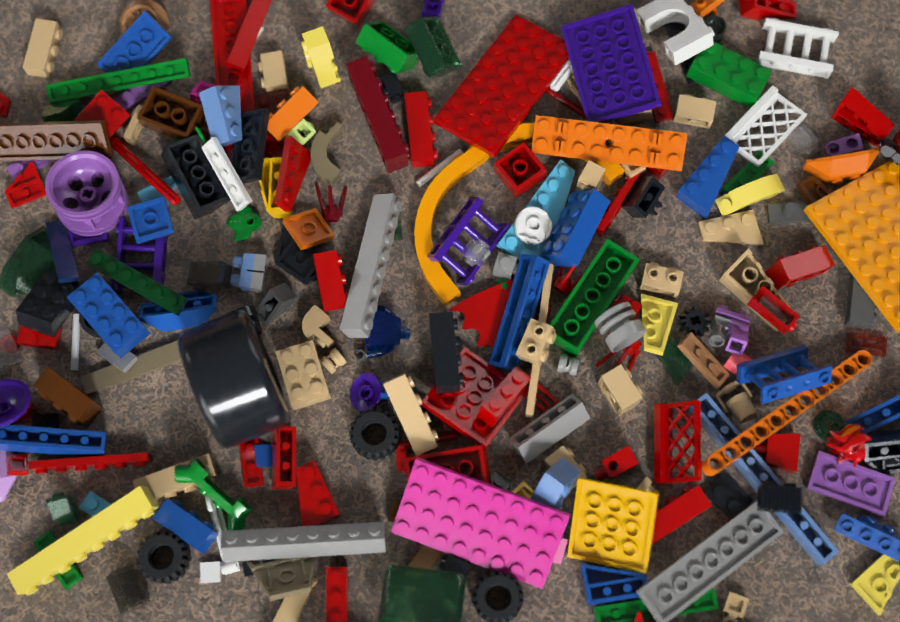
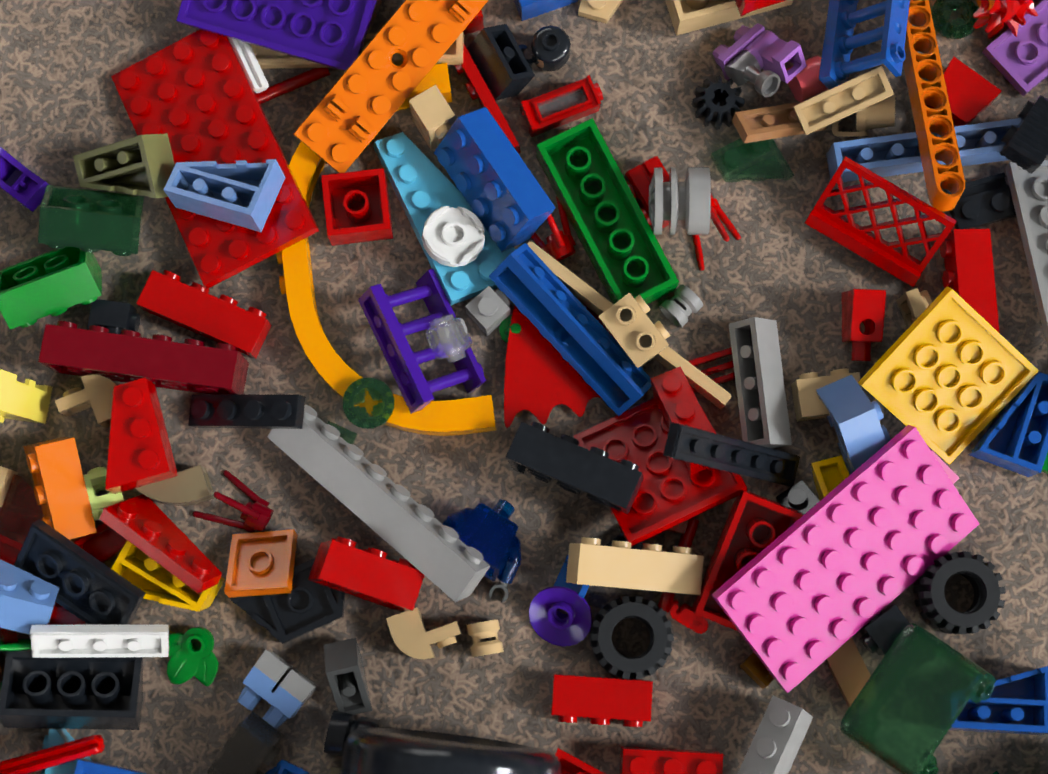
camera: 65 degrees left, 5 degrees up
(303, 375) = (481, 694): tan brick -> none
(334, 437) = (601, 699): none -> red brick
(336, 132) = (138, 439): none -> red wedge
(349, 106) = (97, 394): none -> tan brick
(381, 177) = (247, 411): none -> black plate
(420, 224) = (356, 394): none -> clear green gear
(437, 169) = (280, 320): white bar -> none
(471, 50) = (128, 166): none -> olive wedge
(485, 101) = (227, 192): none -> medium blue wedge
(497, 427) = (730, 455): none -> black tile
(620, 389) = (763, 255): tan brick -> none
(639, 242) = (562, 106): none -> red window
(658, 320) = (685, 144): light yellow wing -> none
(661, 279) = (633, 109): tan brick -> none
(667, 218) = (550, 48): none -> black head
(732, 384) = (843, 100): none -> tan plate

